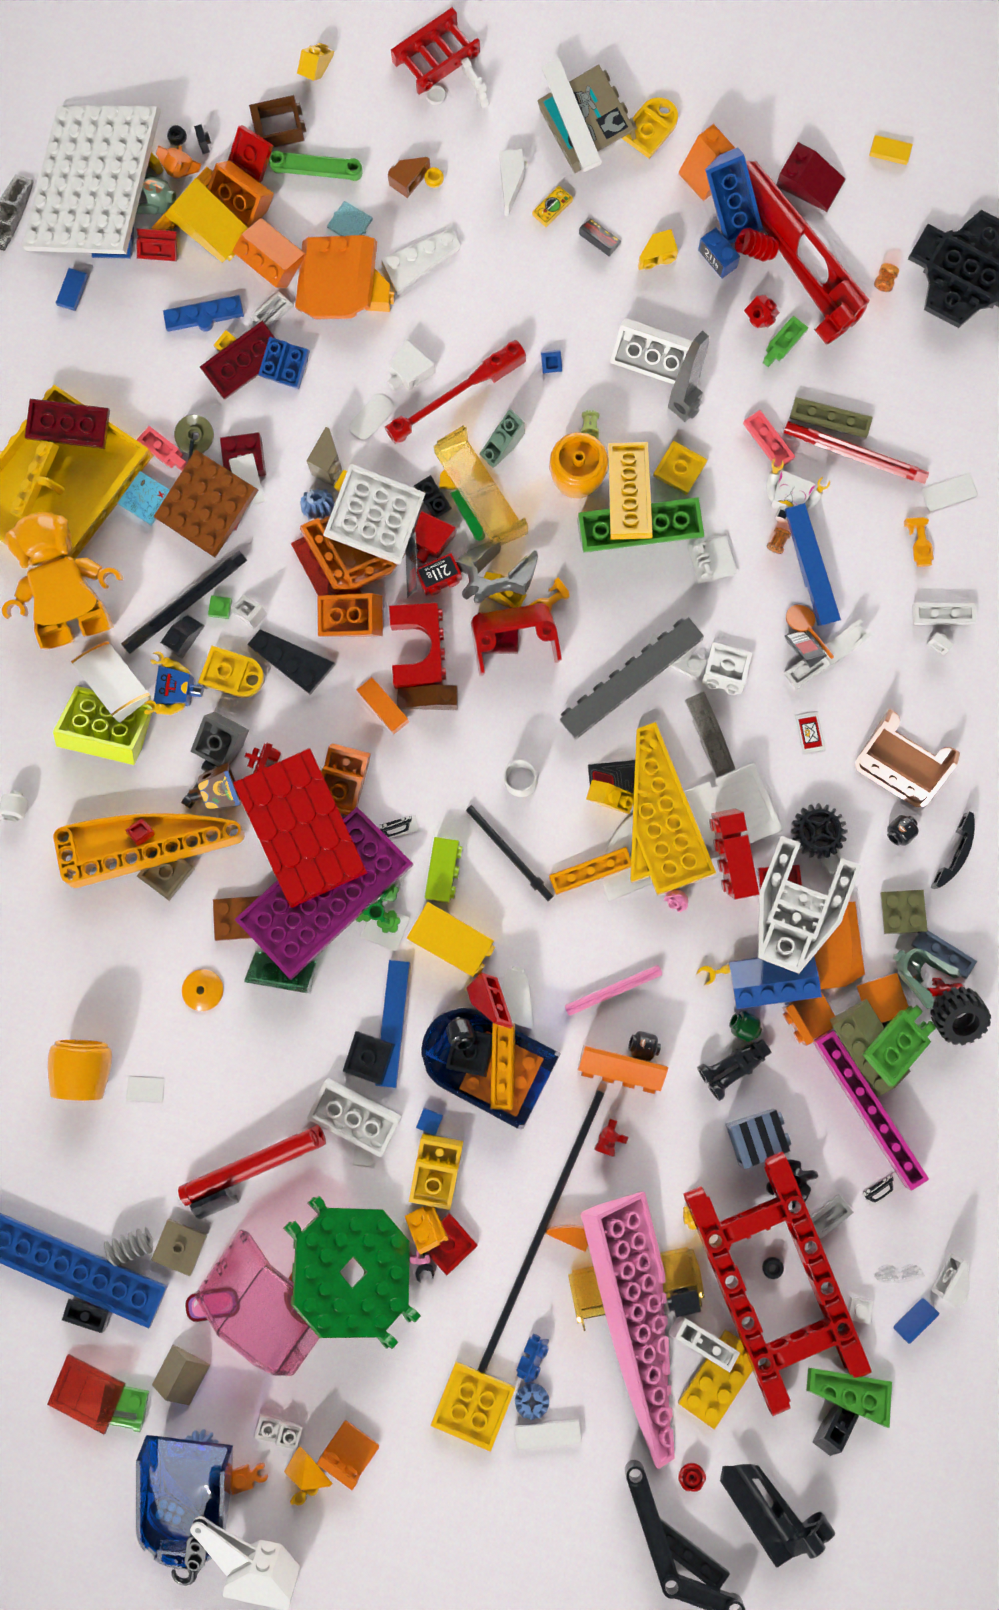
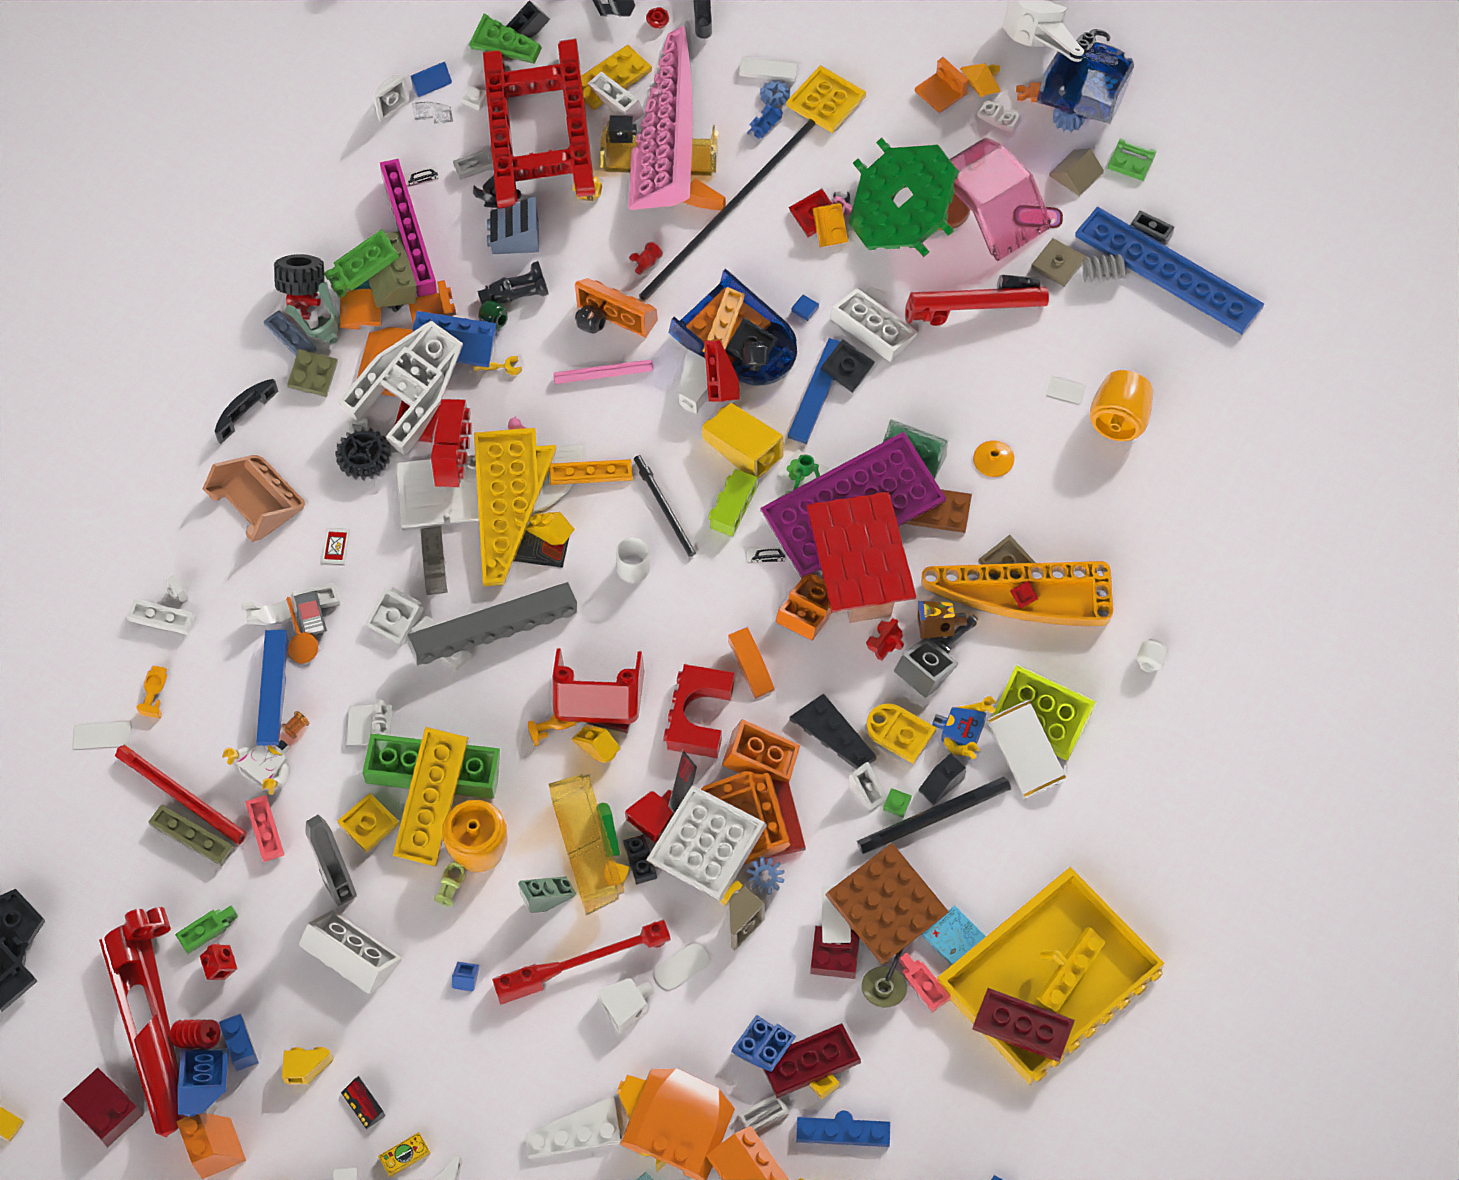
camera: 170 degrees left, 20 degrees down
(57, 582) = (1062, 849): light orange piece -> none
(86, 1394) = (1162, 173): clear red piece -> none
(428, 697) = (696, 654): reddish brown slope -> none
(436, 1171) = (809, 267): yellow slope -> none
(439, 574) = (655, 774): brick -> none
(478, 558) = (575, 726): dark grey piece -> none
(772, 1274) = (537, 135): black plate -> none
(886, 277) = (68, 968): clear orange wheel -> none
(902, 830) = (284, 436): black head -> none

